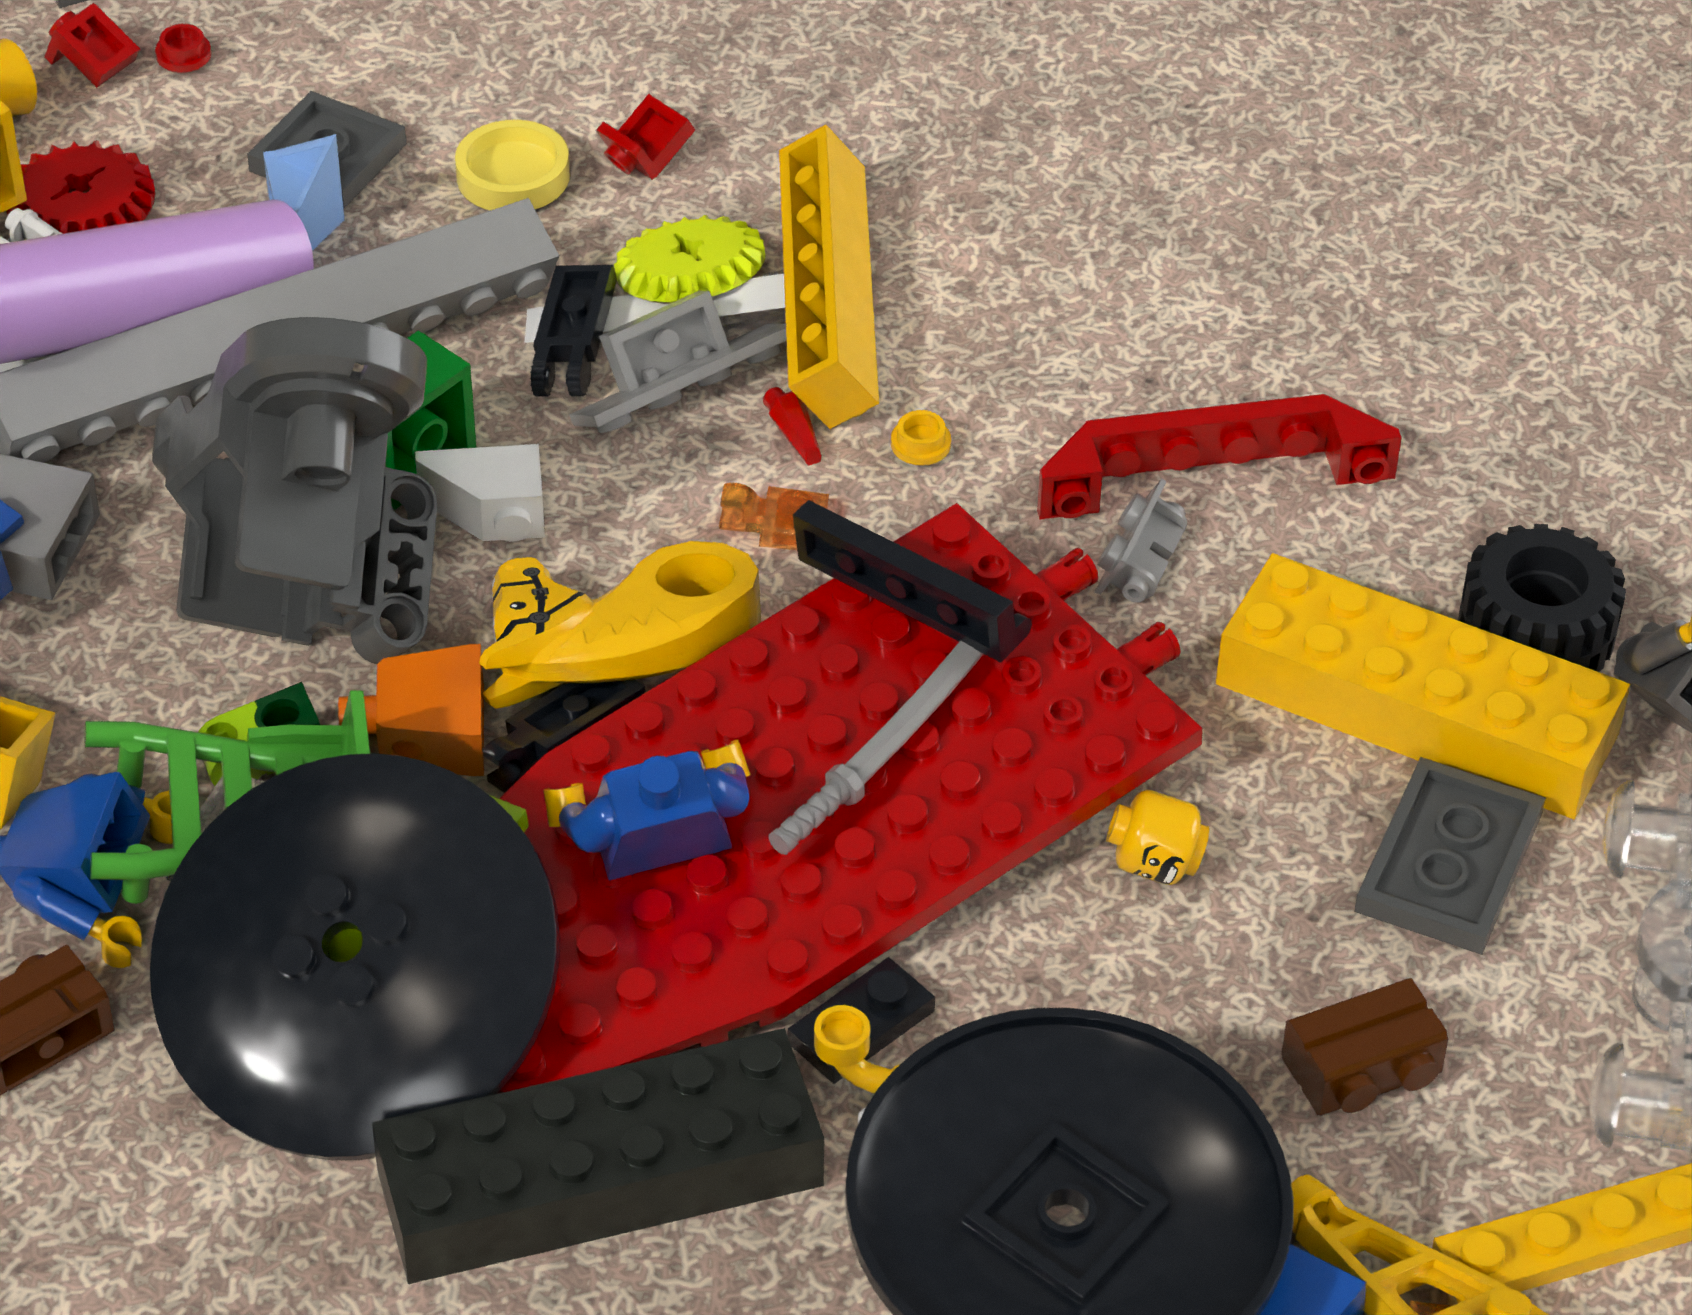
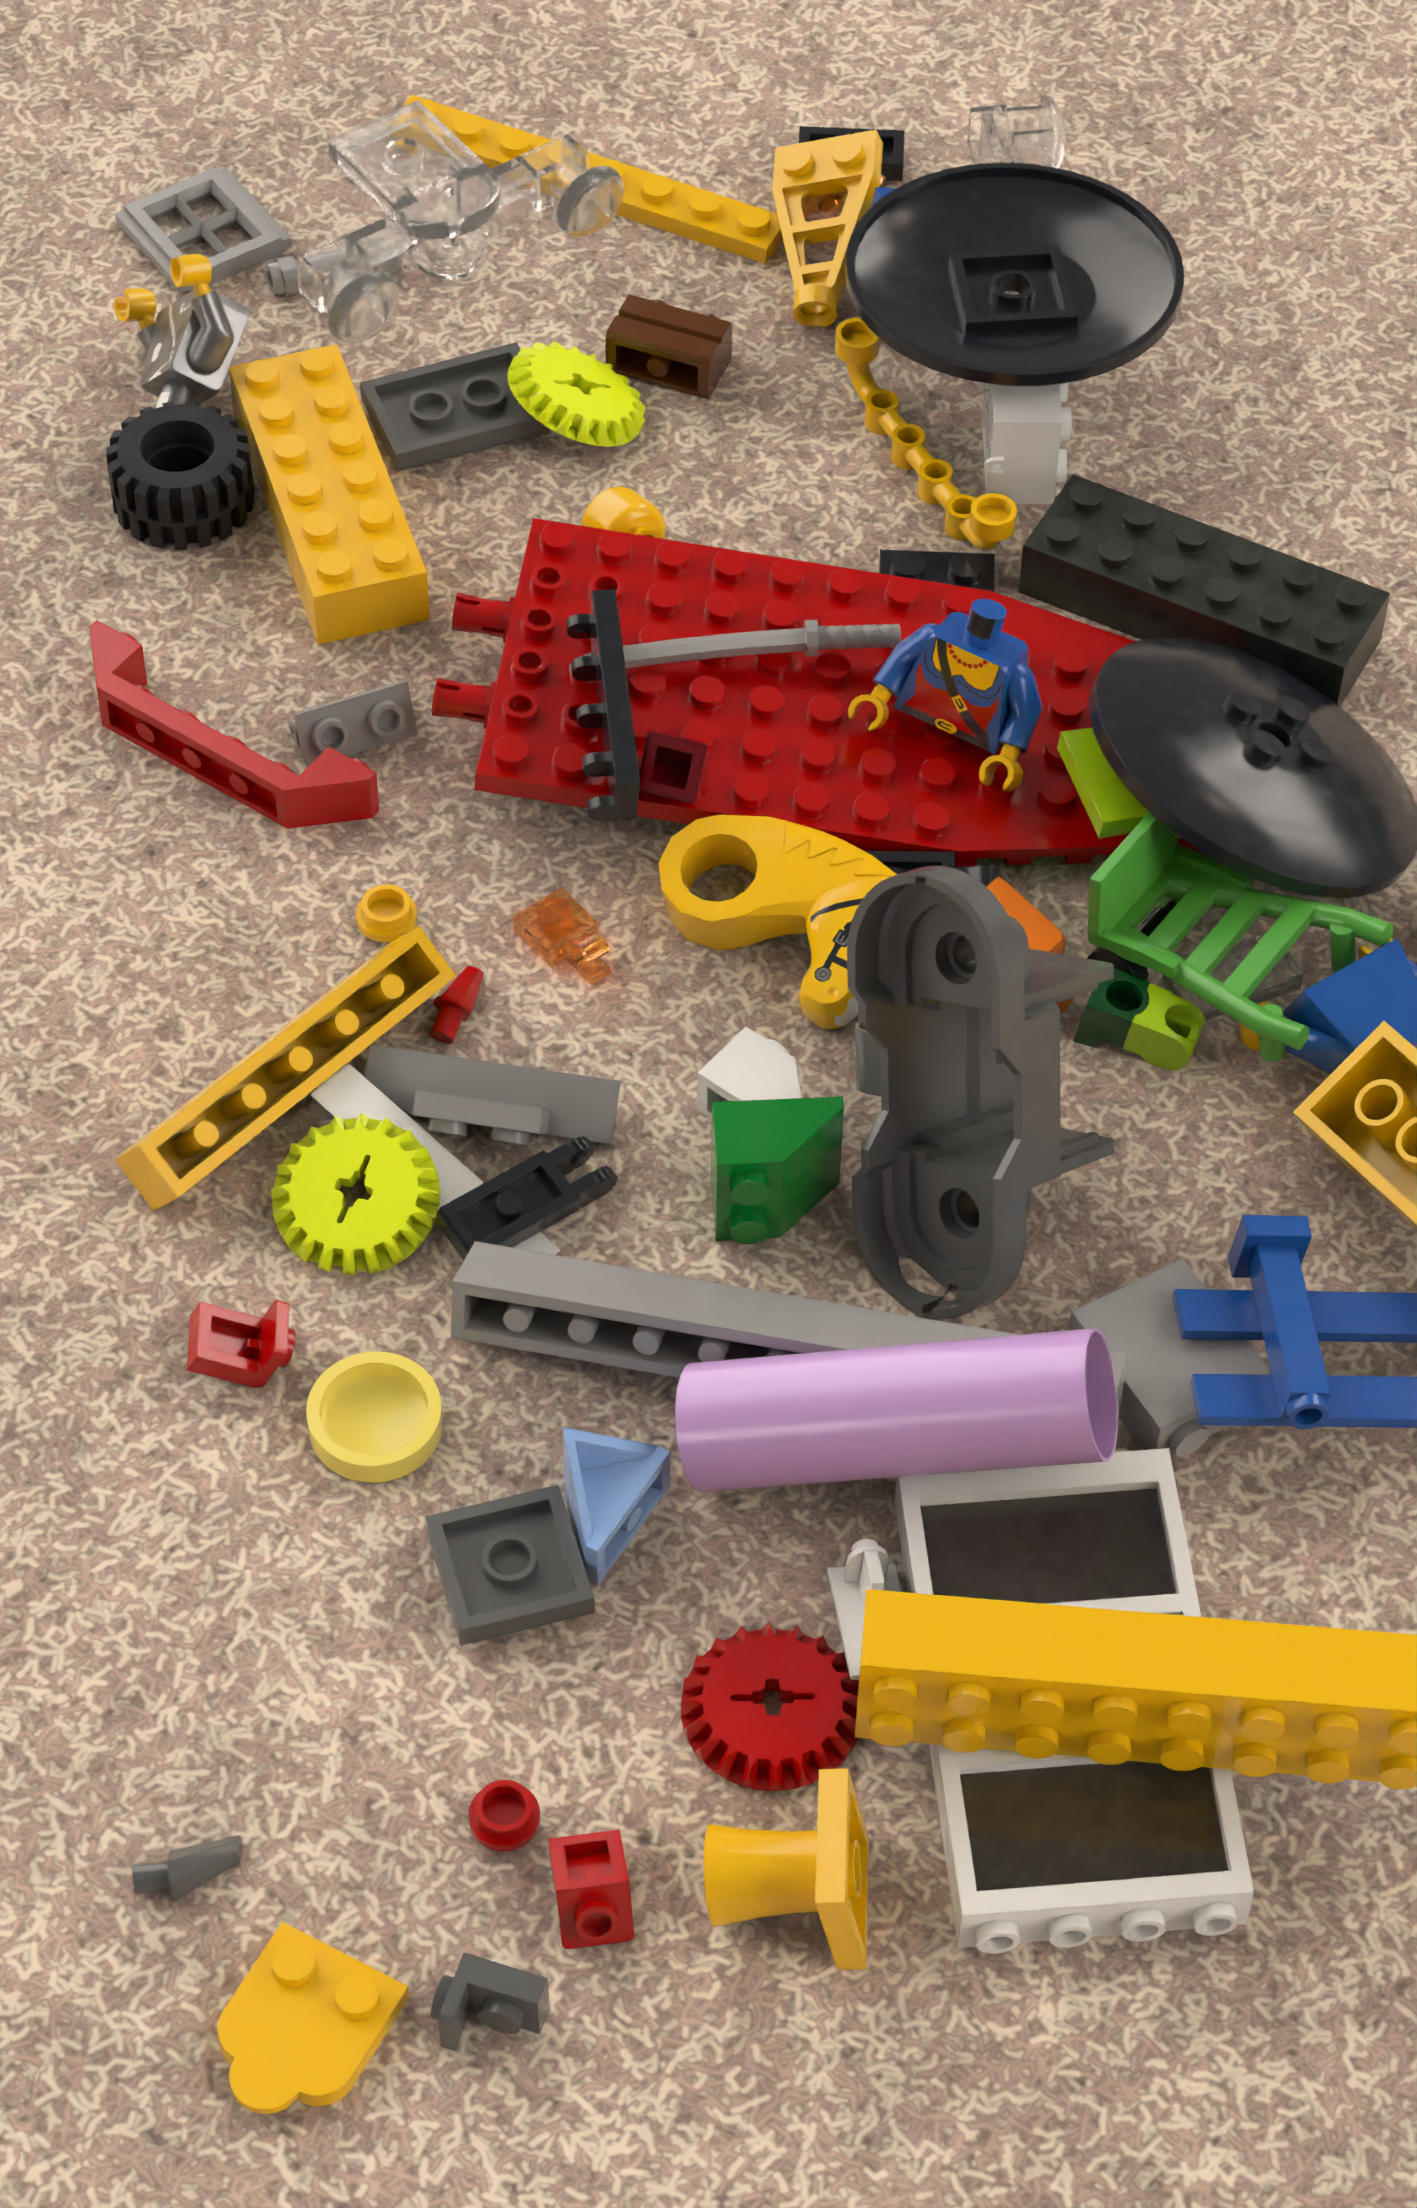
camera: 135 degrees left, 5 degrees up
(813, 597) = (673, 766): none -> dark red slope
(1339, 882) = (576, 395): none -> neon yellow gear

